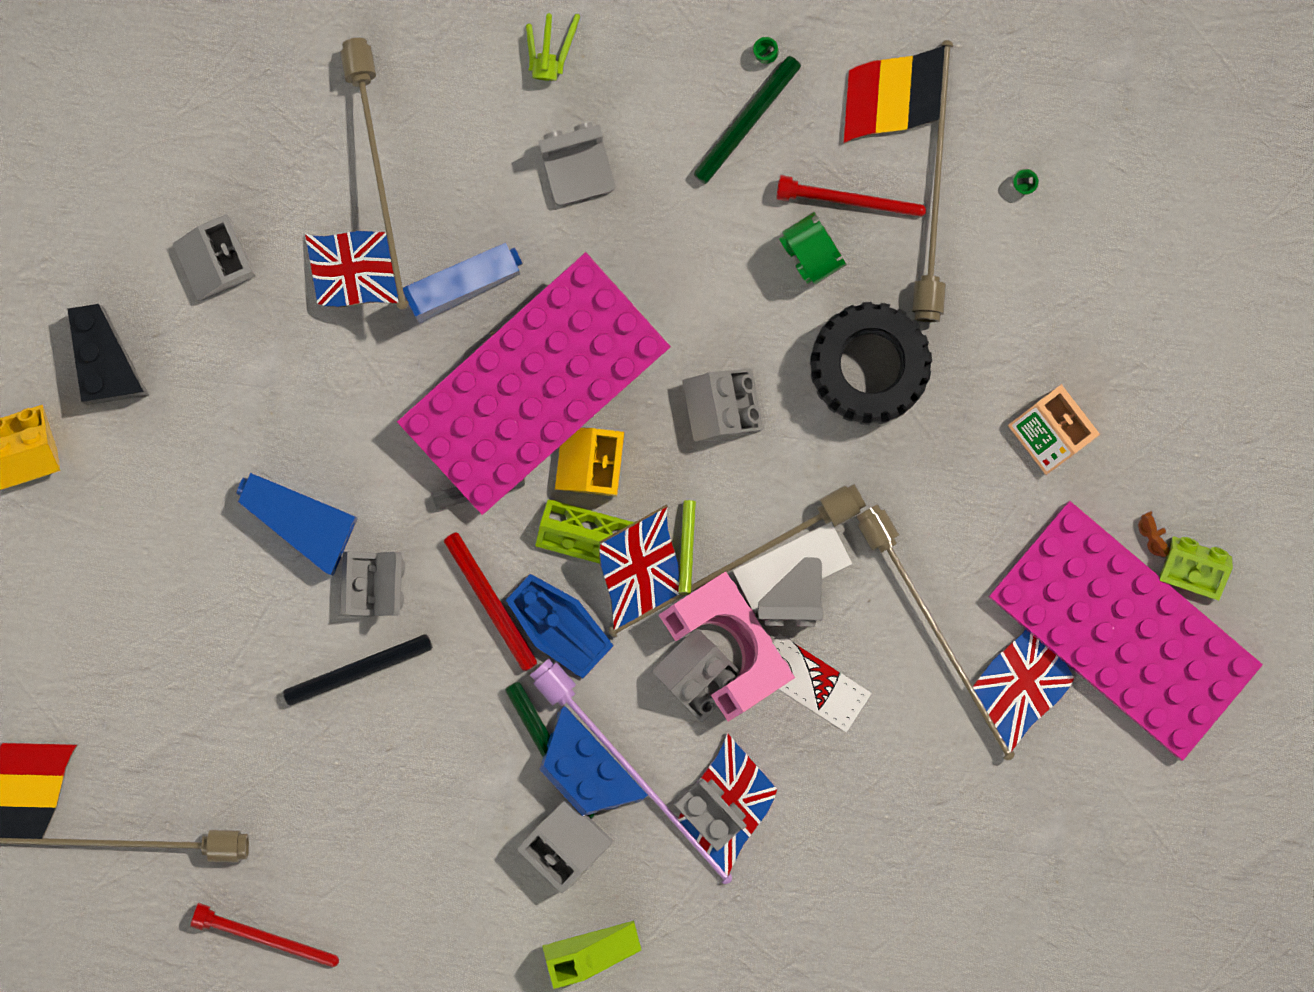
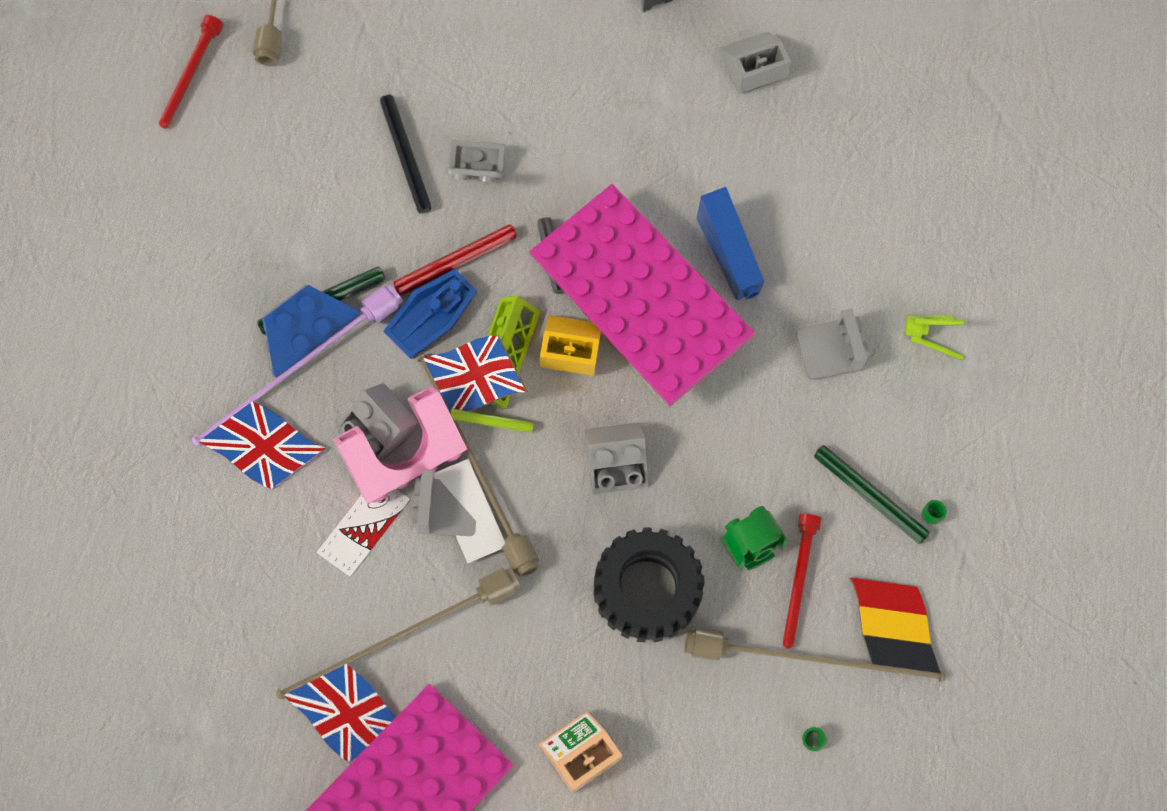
camera: 90 degrees right, 15 degrees down
(305, 523) = (532, 113): blue slope -> none
(358, 264) = (751, 162): flag -> none
(565, 846) = (236, 301): light grey slope -> none
(590, 953) = (142, 318): lime slope -> none
(710, 813) = (254, 427): light grey bracket -> none

